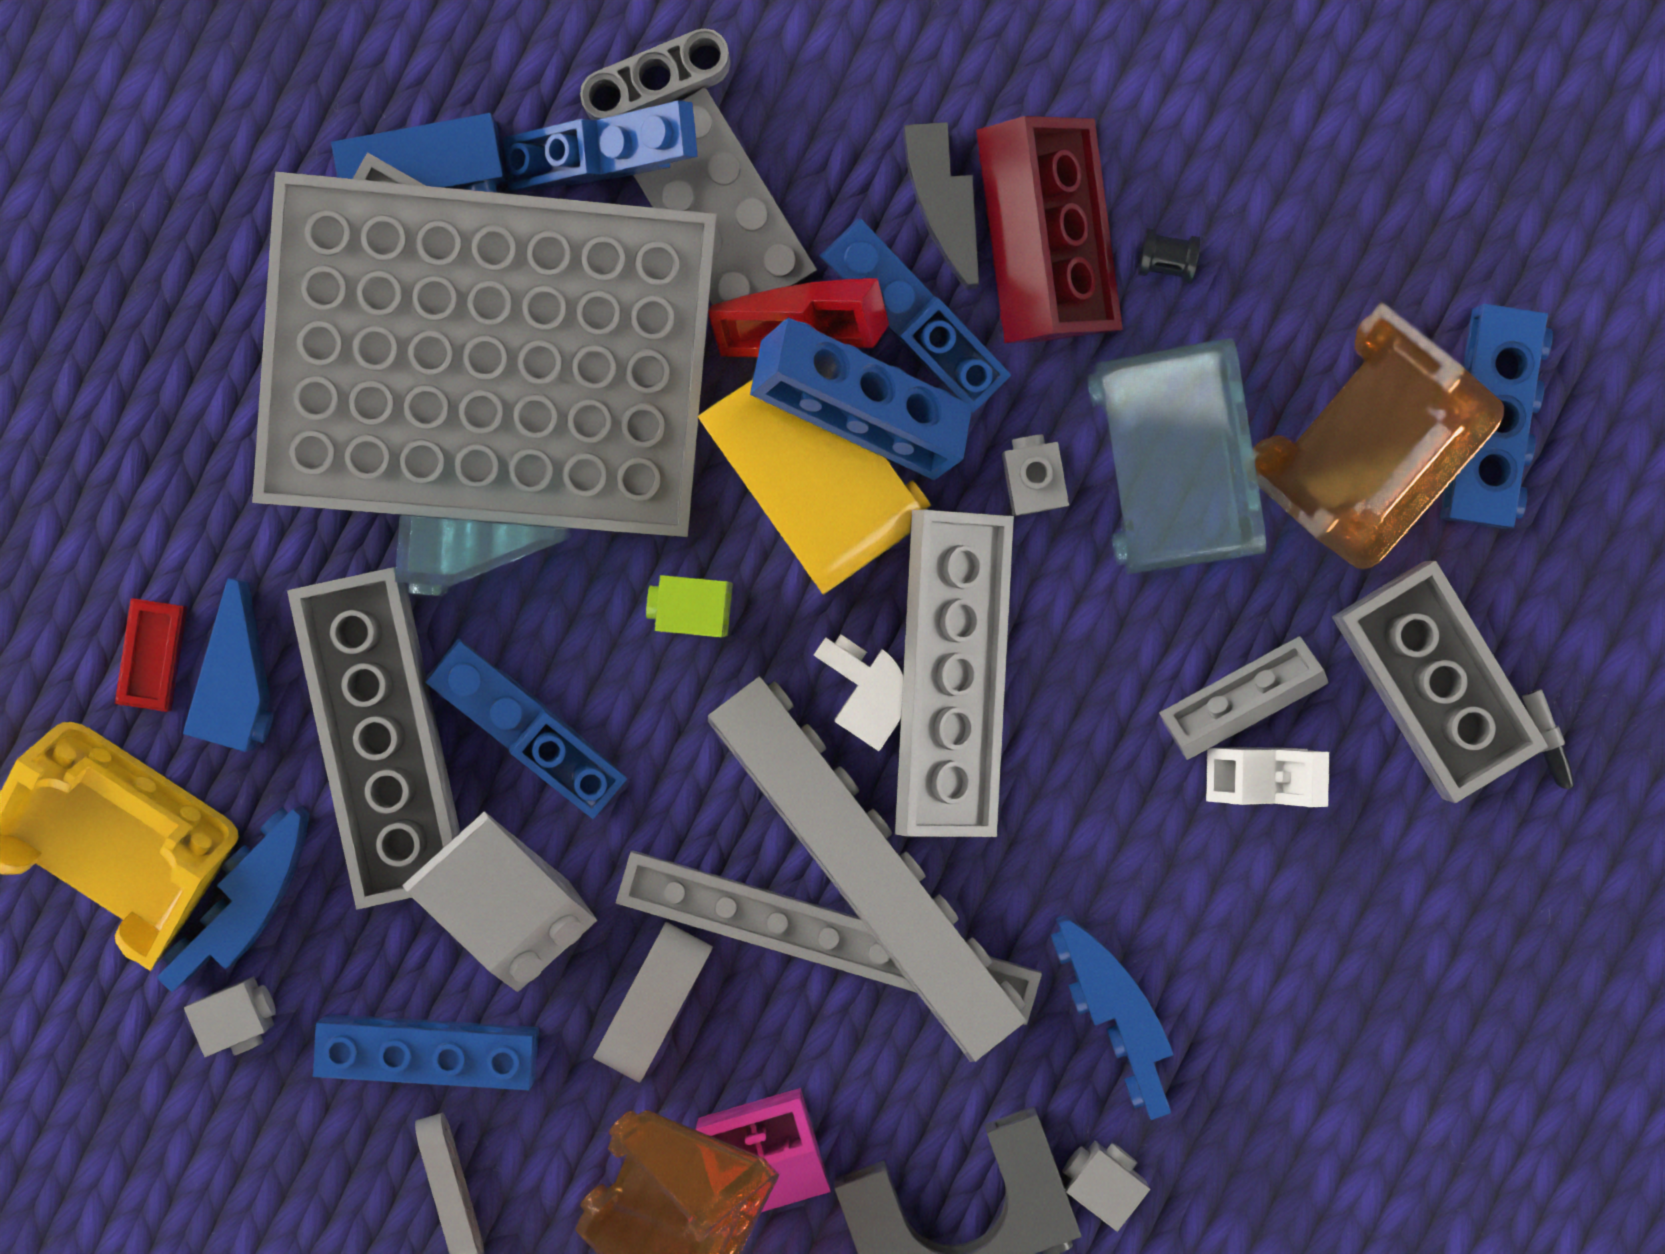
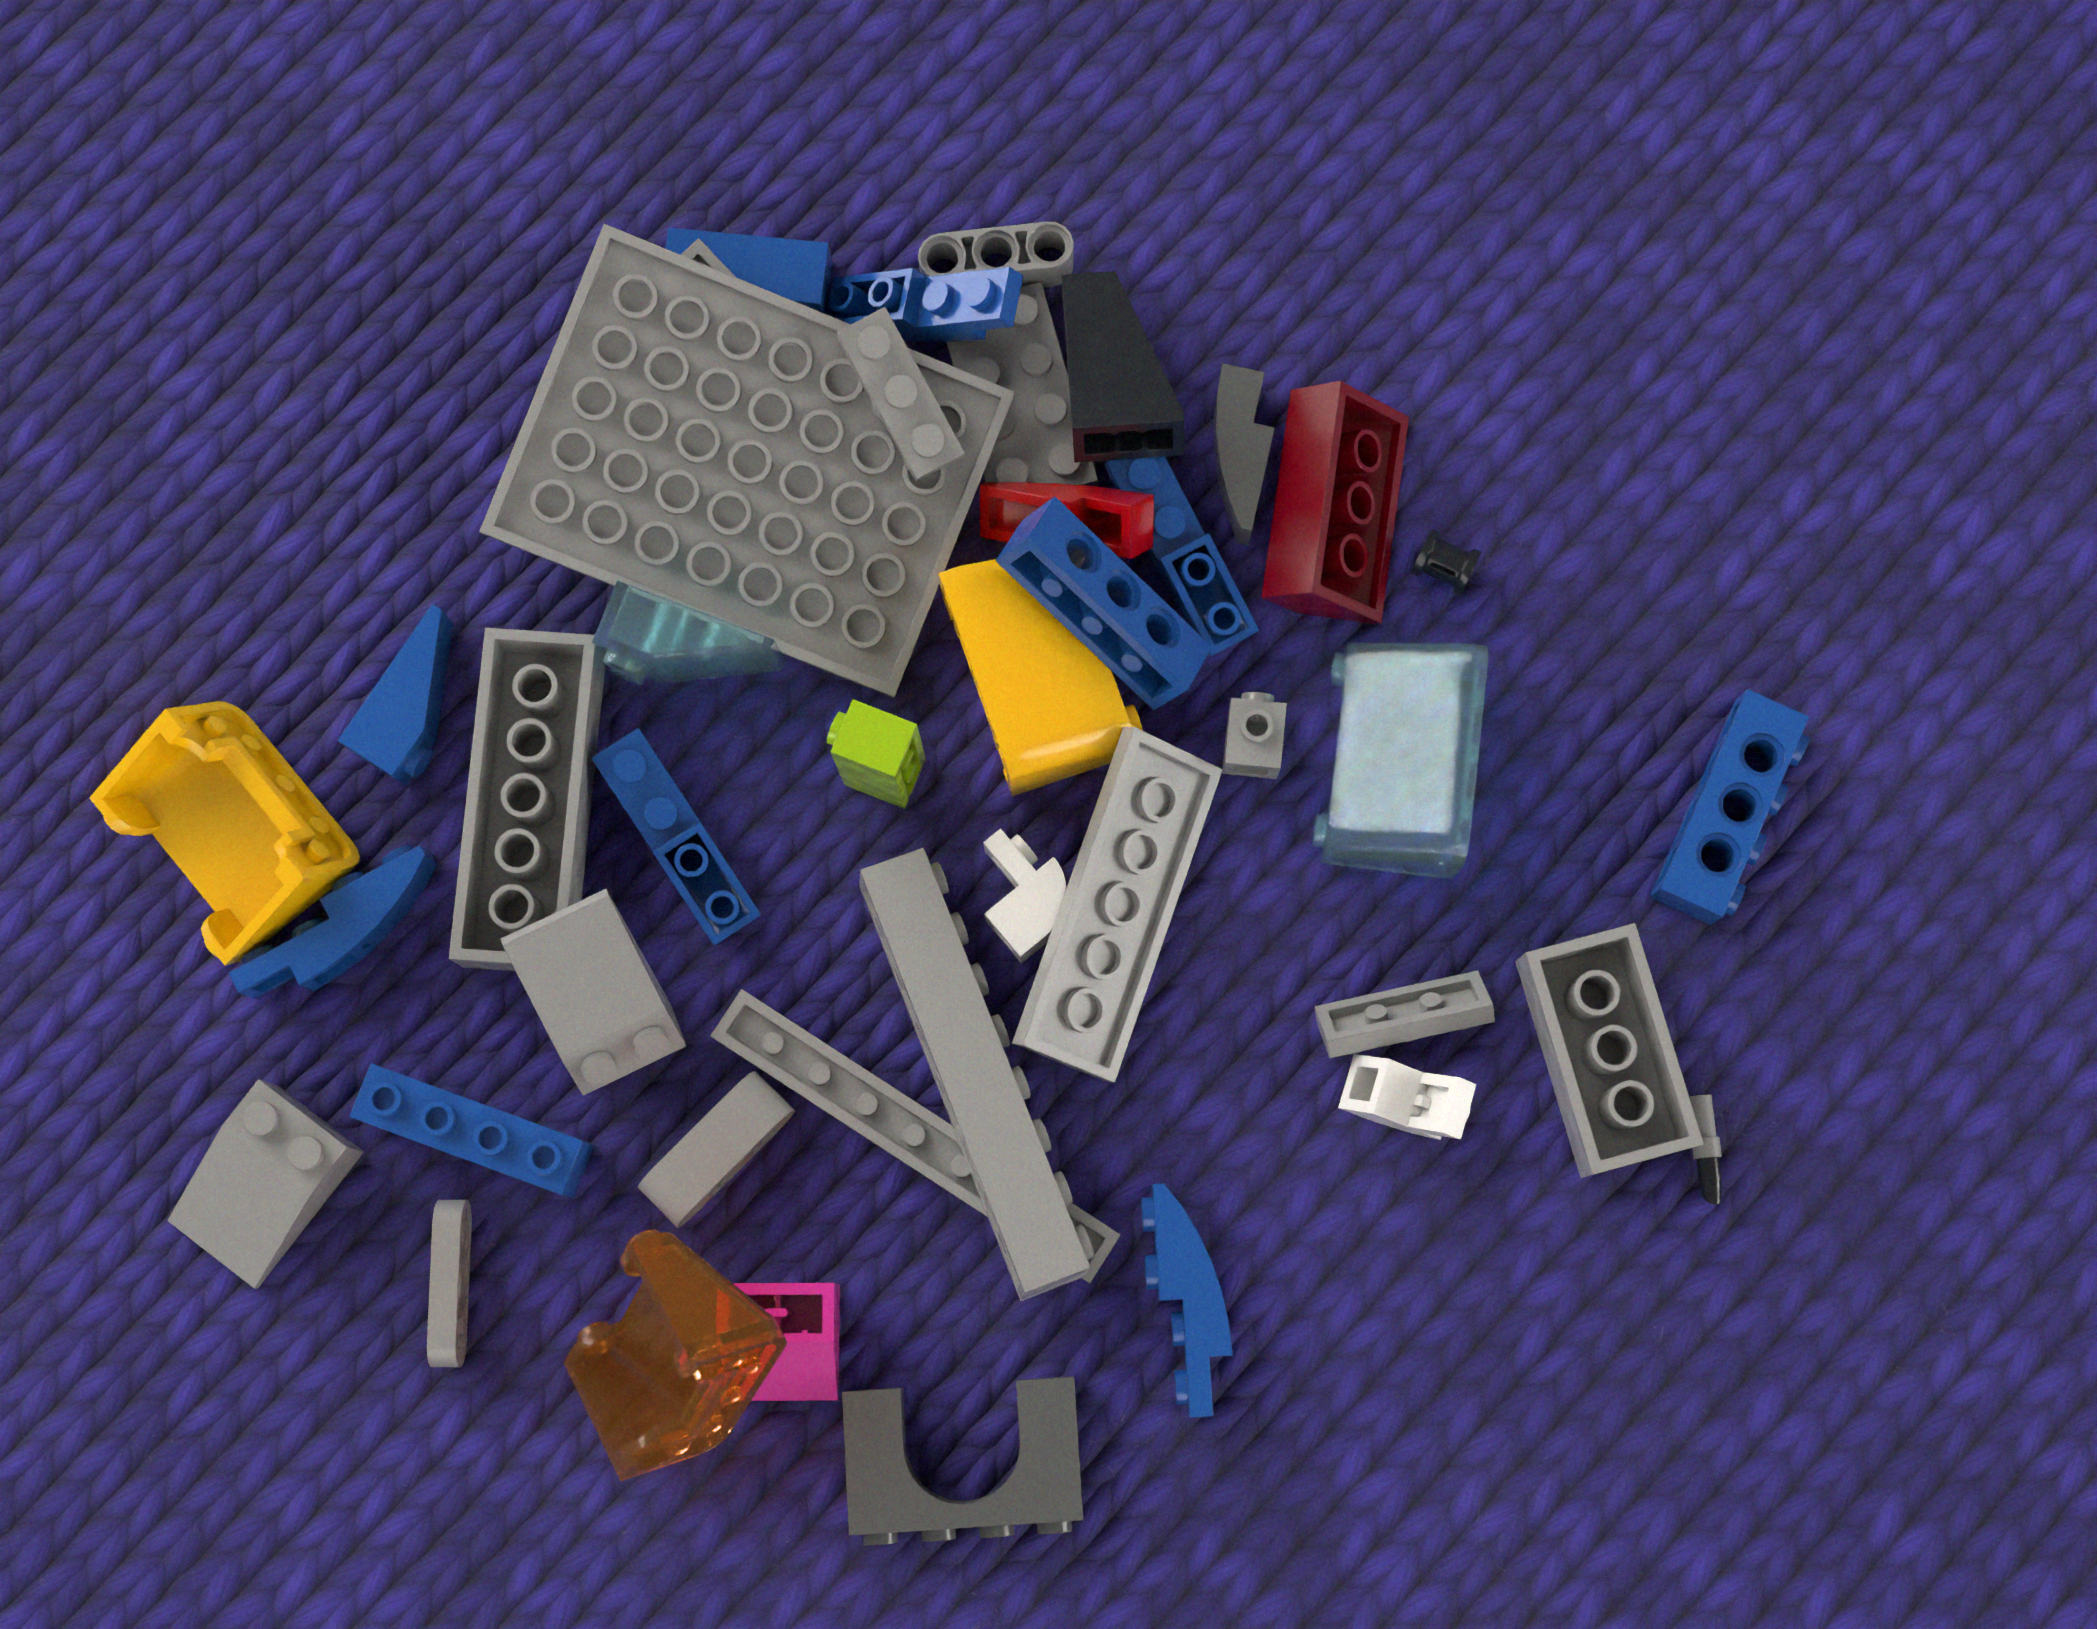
camera: 15 degrees right, 10 degrees down
(151, 655) = (334, 664): red tile -> none
(232, 1017) = (290, 1039): light grey brick -> none
(251, 1149) = (262, 1182): none -> light grey slope
(608, 251) = (900, 394): none -> light grey plate
(808, 175) = (1115, 380): none -> black slope
(1105, 1182) = (1124, 1473): light grey brick -> none
(1380, 443) = (1612, 796): clear orange windscreen -> none

